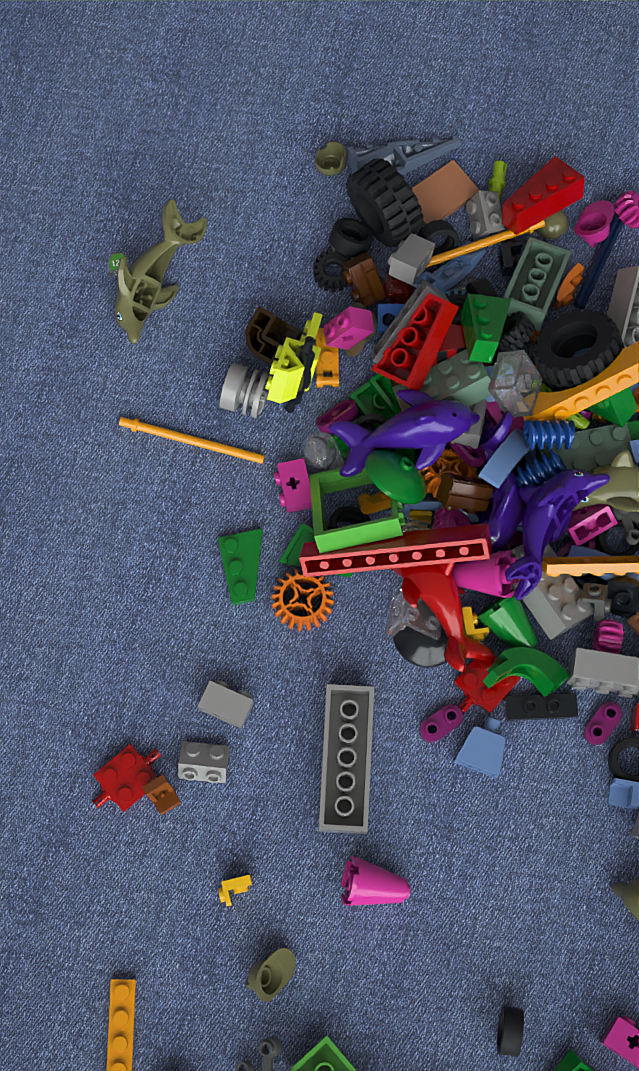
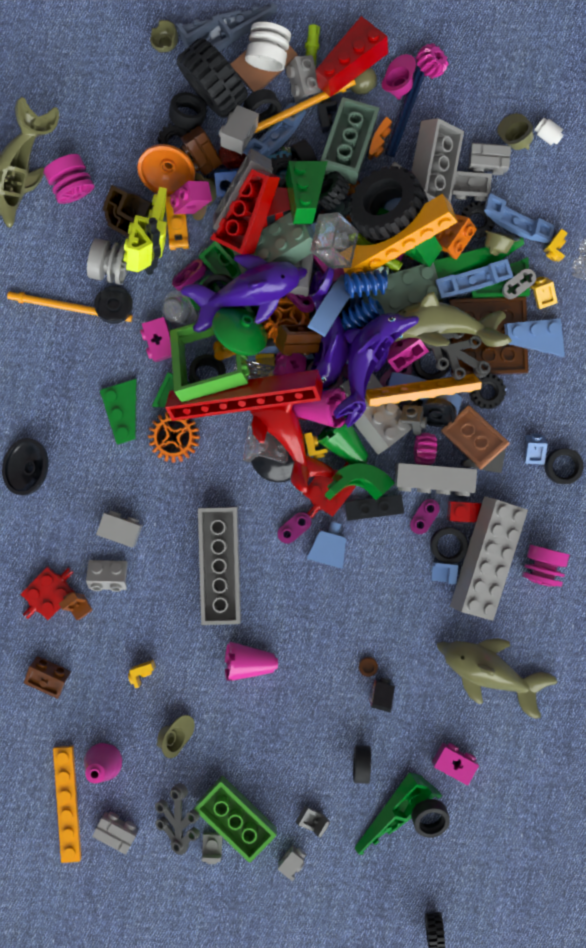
camera: 10 degrees right, 15 degrees up
(113, 885) = (47, 677): none -> reddish brown bracket
(119, 618) = (25, 466): none -> black dish
(184, 1004) = (102, 763): none -> dark pink cone
(208, 297) = (68, 178): none -> dark pink wheel
(244, 442) = (113, 305): none -> black tile
(307, 293) = (157, 173): none -> orange dish
(449, 177) = (268, 46): none -> white wheel
(523, 907) = (368, 666): none -> reddish brown tile
(541, 940) = (382, 694): none -> black slope

